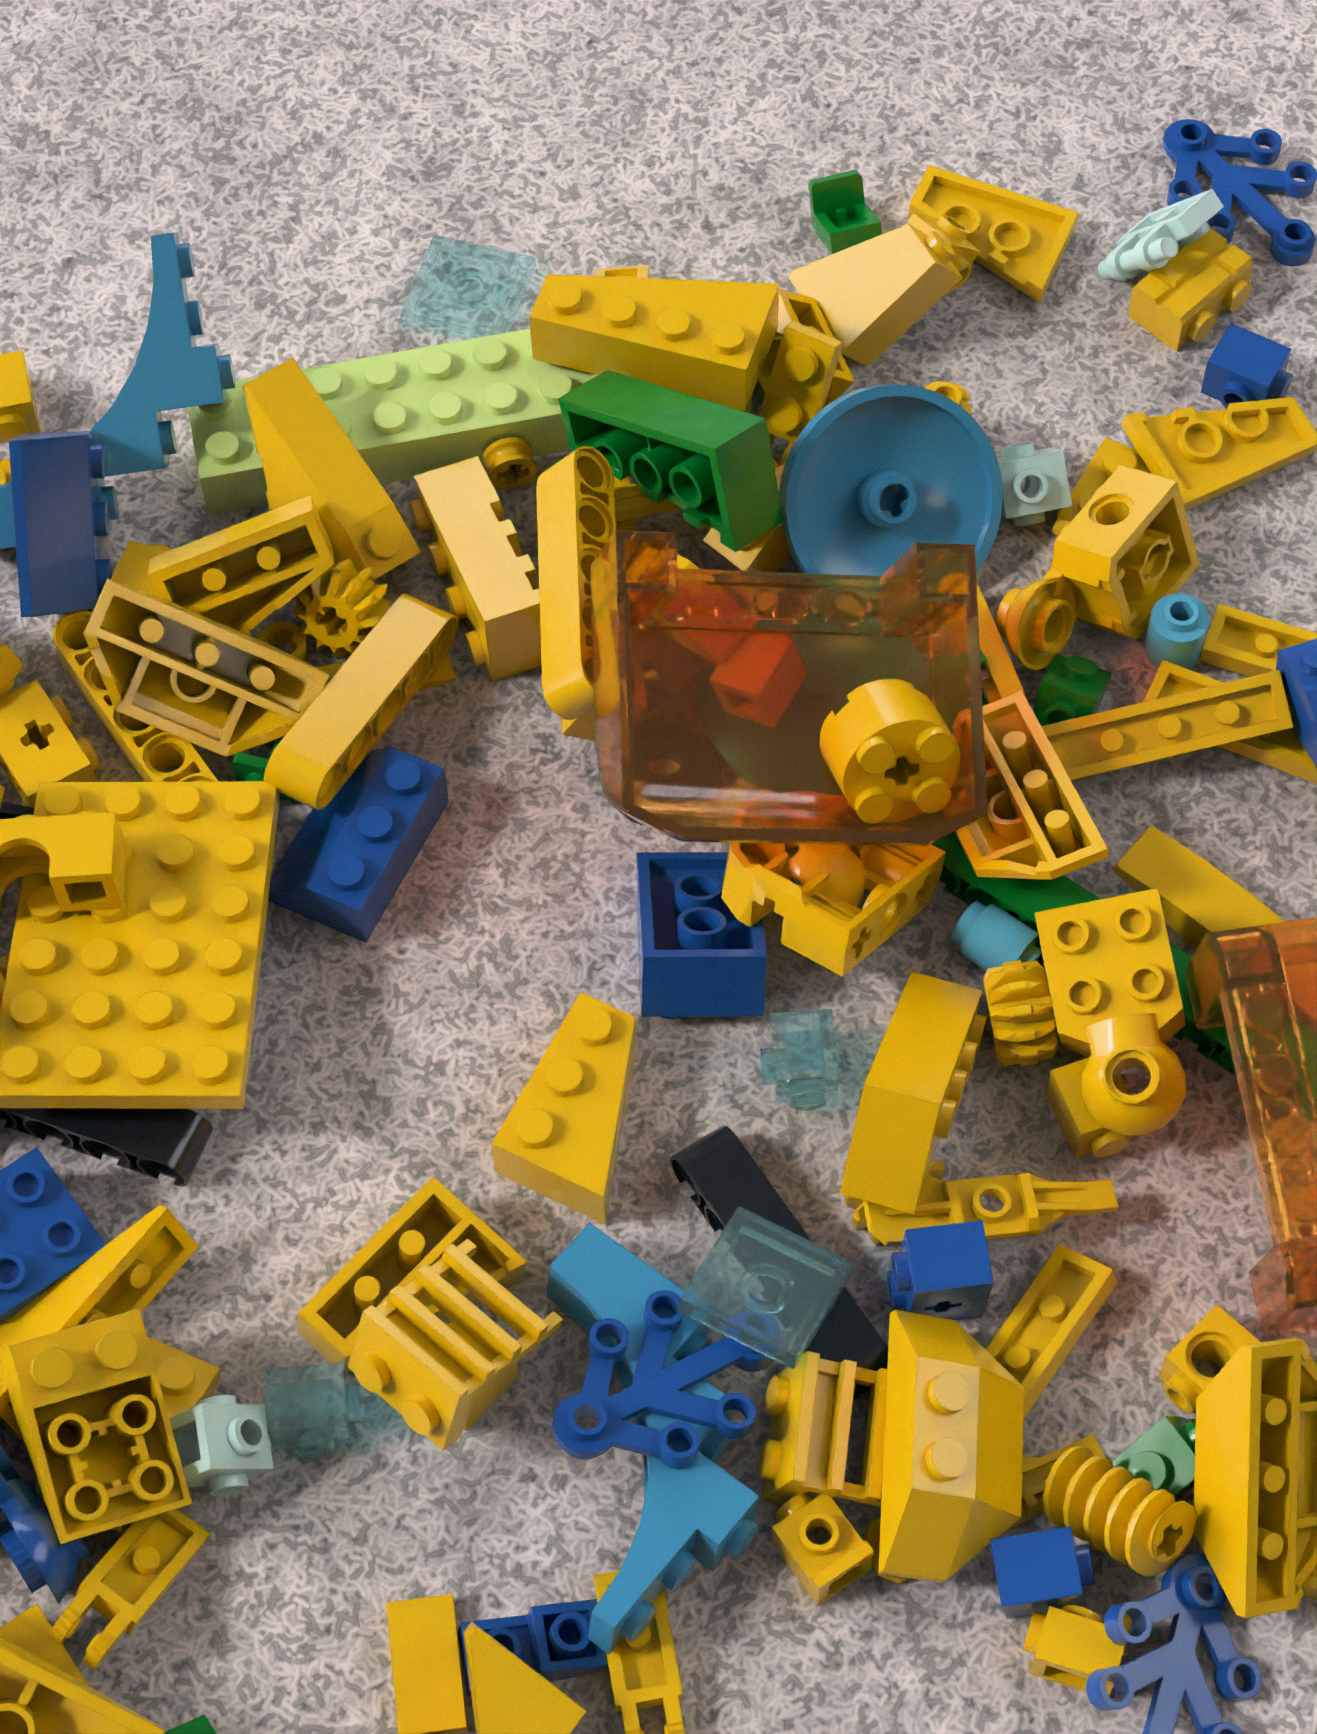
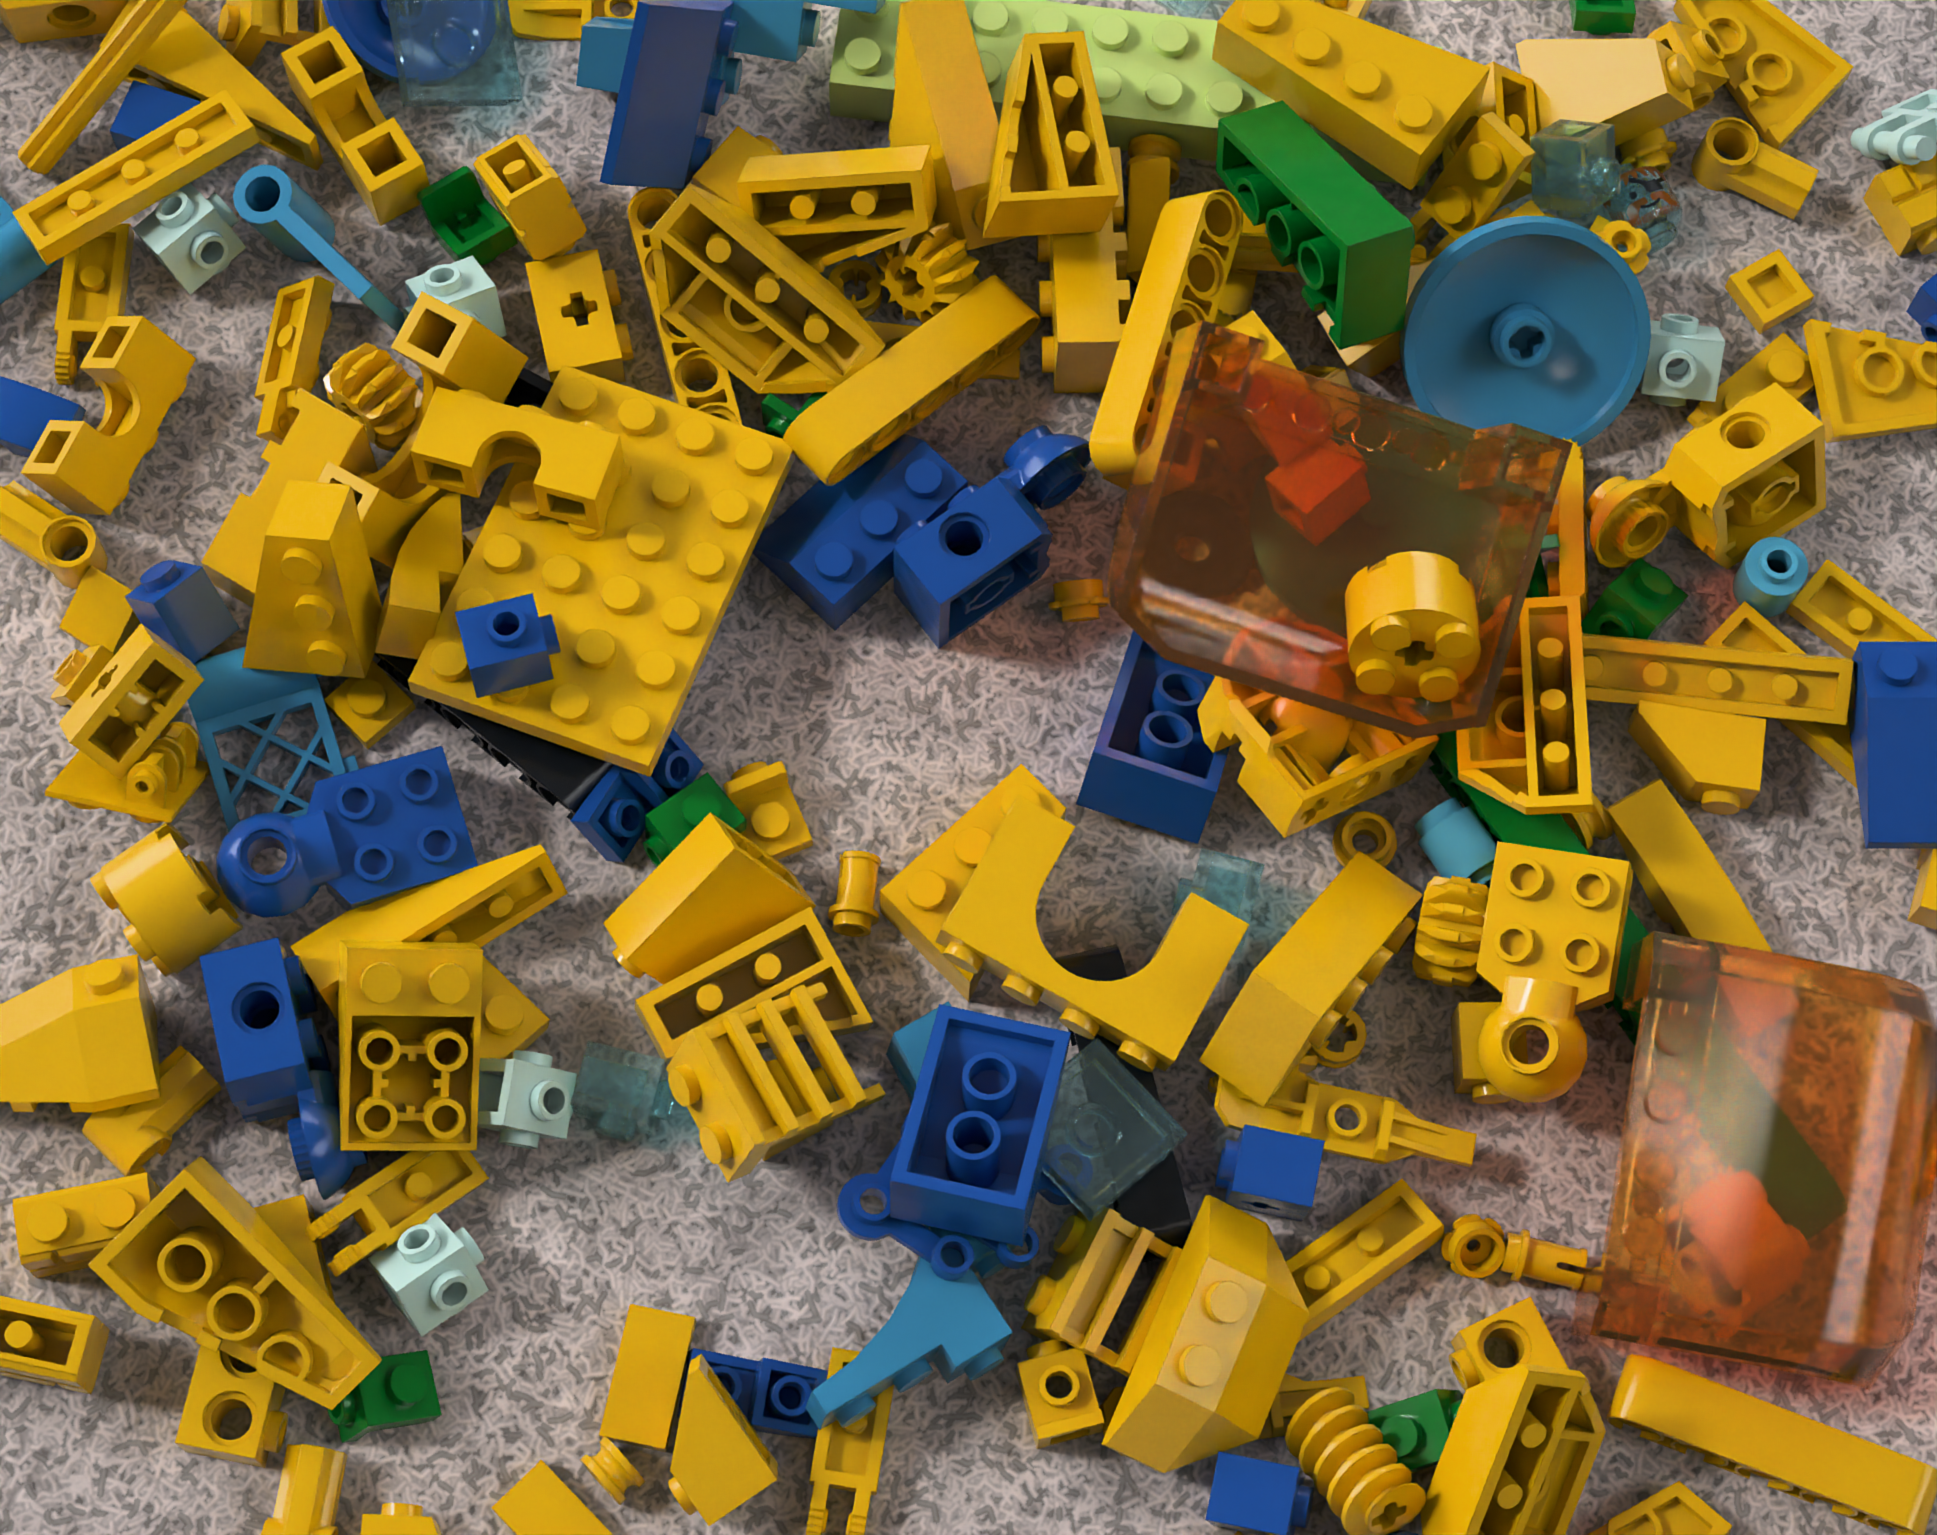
camera: 15 degrees right, 10 degrees up
(71, 1027) = (507, 644): none -> blue brick
(184, 1637) = (430, 1273): none -> light aqua brick
(228, 1142) = (616, 808): none -> blue slope
(294, 1151) = (680, 814): none -> green bracket
(326, 1212) = (702, 903): none -> yellow slope
(359, 1117) = (770, 809): none -> yellow bracket
(419, 460) = (1051, 144): none -> yellow wedge
(471, 1177) = (855, 897): none -> yellow pin
(479, 814) = (988, 538): none -> blue brick
(518, 496) = (1146, 198): none -> yellow slope
(578, 843) = (1079, 599): none -> yellow plate
(618, 1142) = (998, 931): none -> yellow arch
(662, 1313) = (979, 1125): none -> blue slope
(879, 349) = (1574, 167): none -> clear light blue brick
(909, 951) = (1364, 824): none -> yellow plate
(933, 332) = (1649, 150): none -> yellow plate
(946, 362) = (1646, 203): none -> clear light blue head
(960, 1162) = (1351, 1049): none -> yellow bush
(1010, 313) = (1755, 170): none -> yellow piece
(1080, 408) = (1769, 291): none -> yellow plate
(1100, 879) = (1590, 824): none -> yellow bush
(1161, 1282) = (1482, 1259): none -> yellow plate
(1179, 794) = (1703, 753): none -> yellow slope
(1210, 1275) = (1539, 1260): none -> yellow pin

